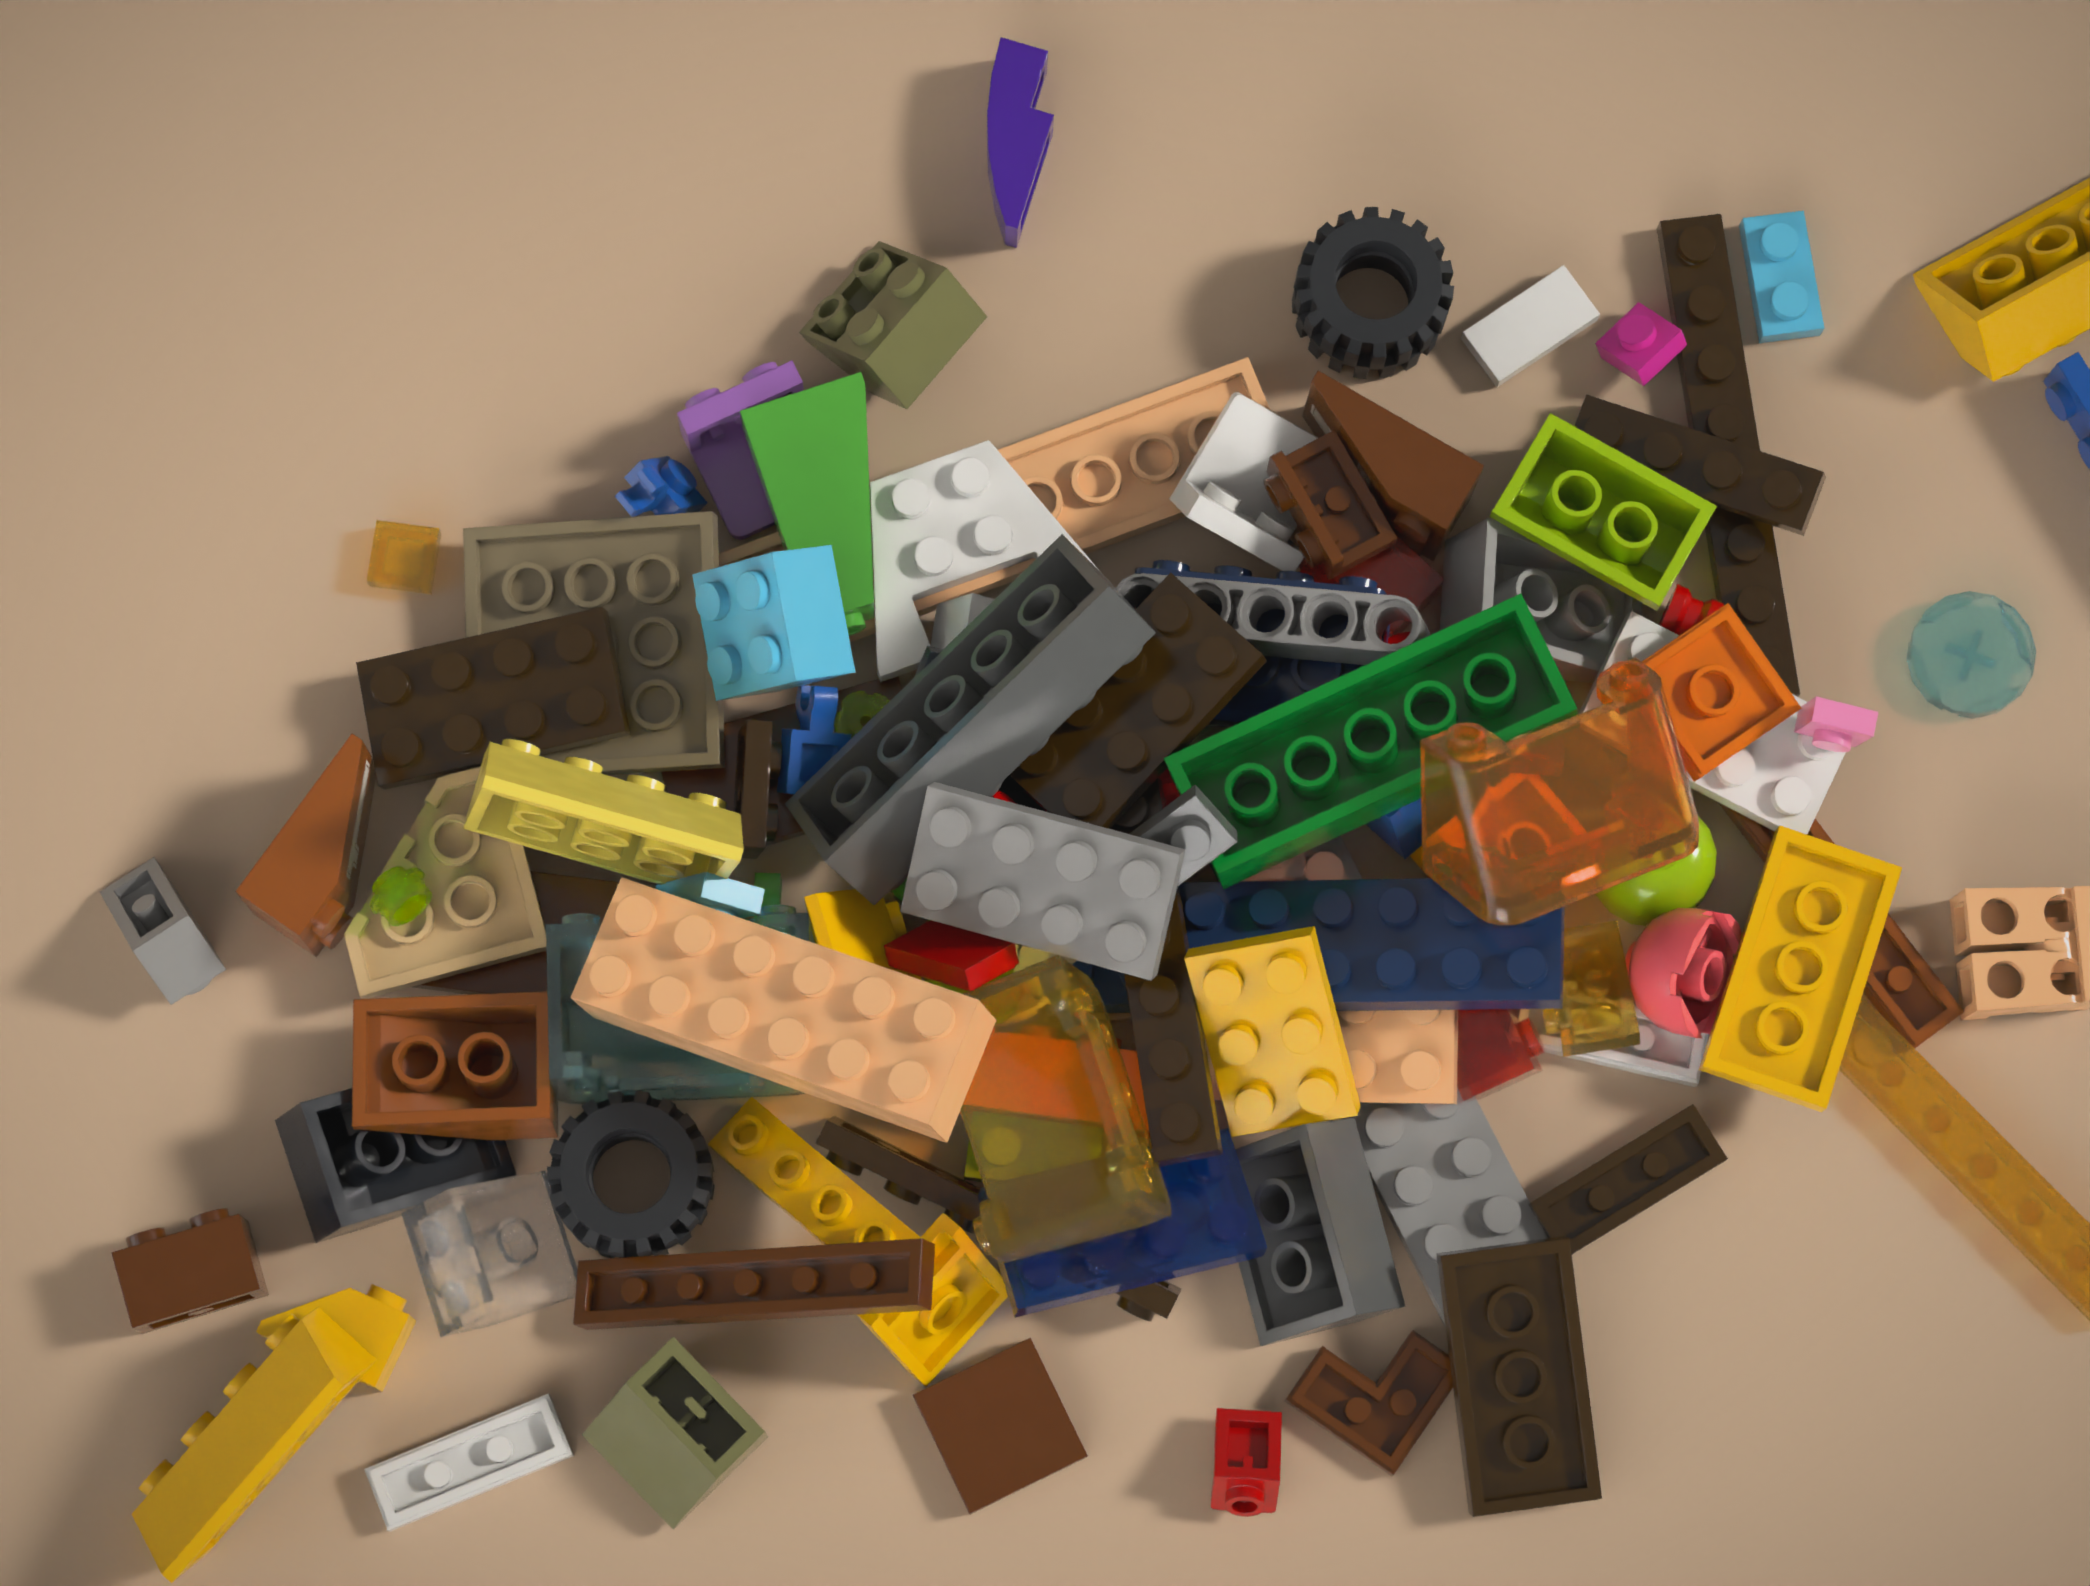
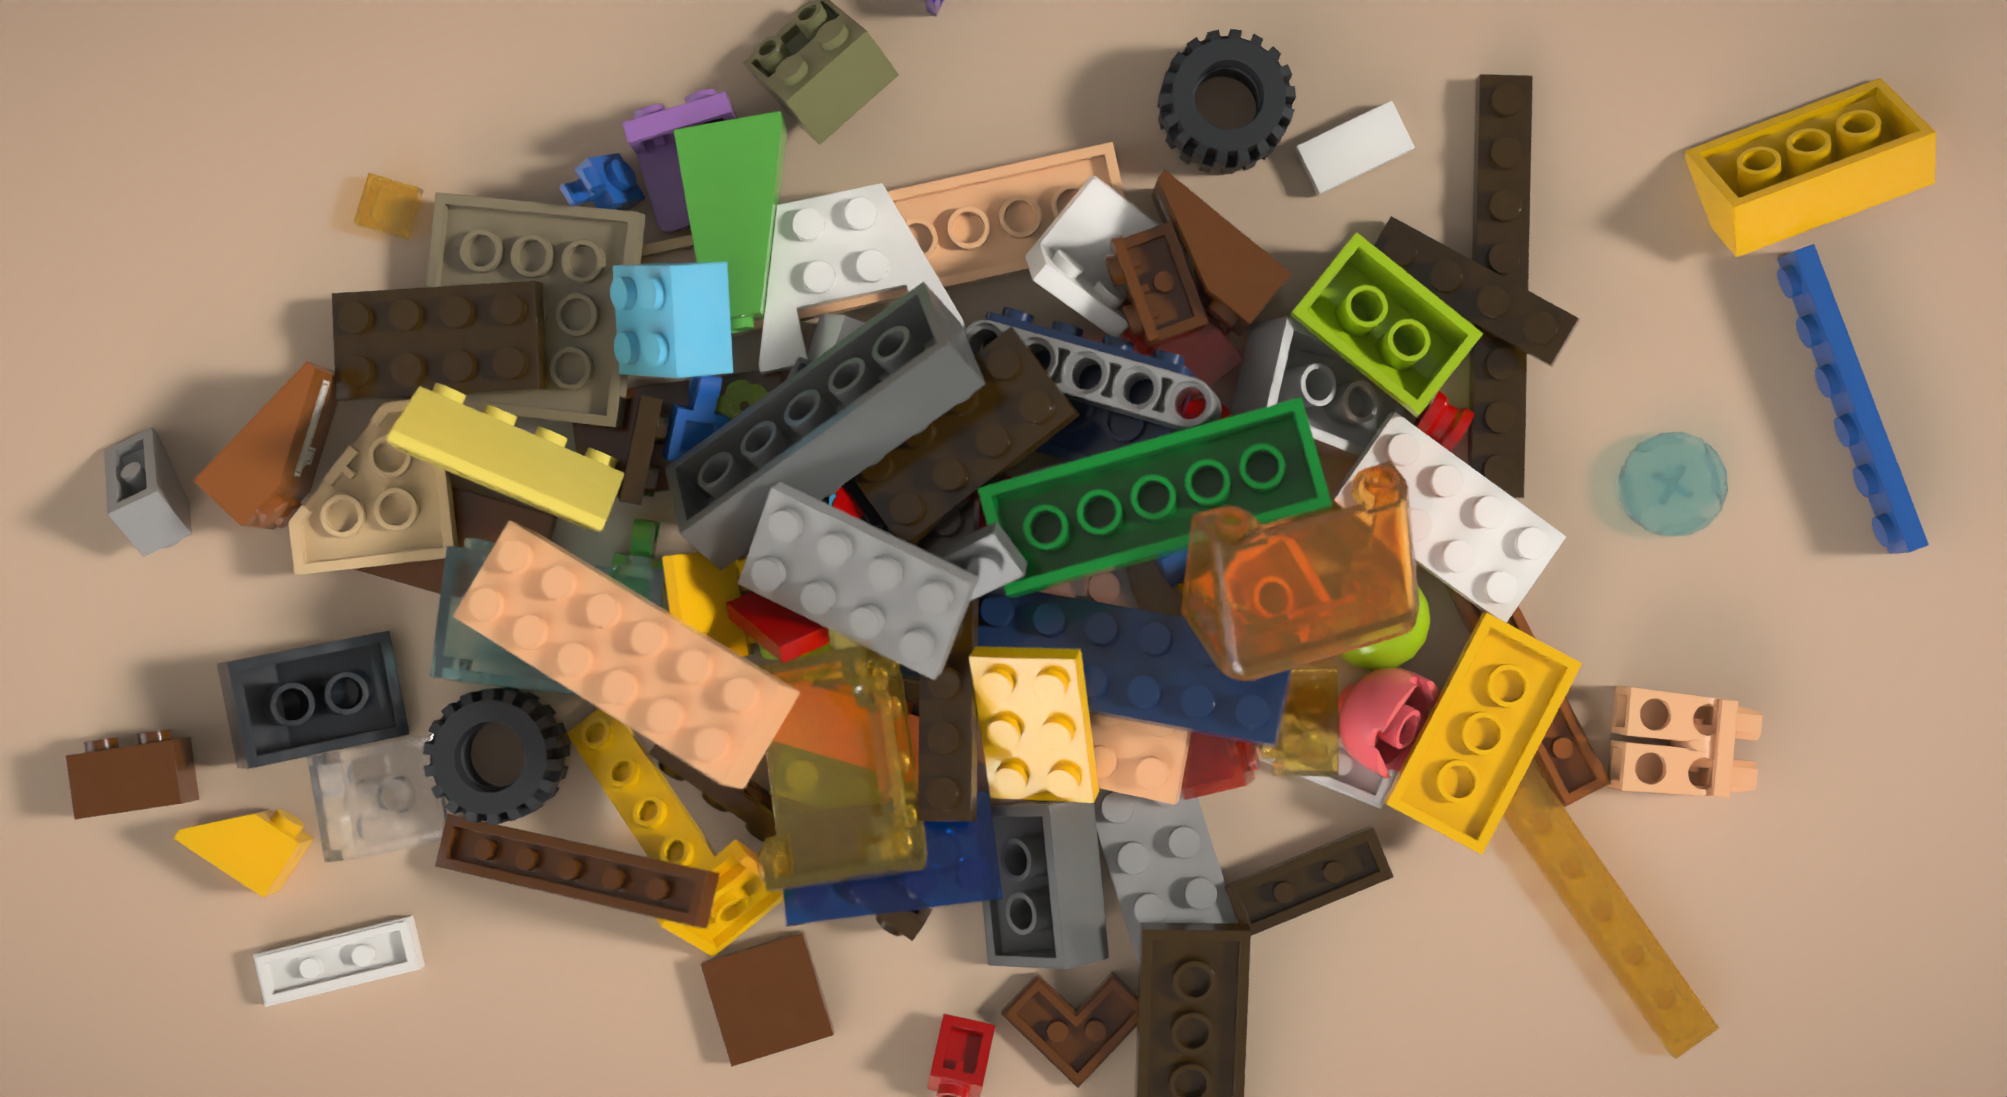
camera: 15 degrees right, 10 degrees up
(249, 1440) = (152, 928): yellow slope -> none
(400, 895) = (334, 499): clear neon green plate -> none
(454, 1066) = (357, 645): dark orange slope -> none
(674, 1433) = (505, 966): olive slope -> none
(717, 893) = (587, 543): medium azure plate -> none
(1641, 344) = (1445, 178): dark pink plate -> none
(1719, 690) = (1455, 492): orange tile -> none
(1781, 276) = (1573, 136): medium azure plate -> none
(1835, 724) = (1549, 538): bright pink plate -> none

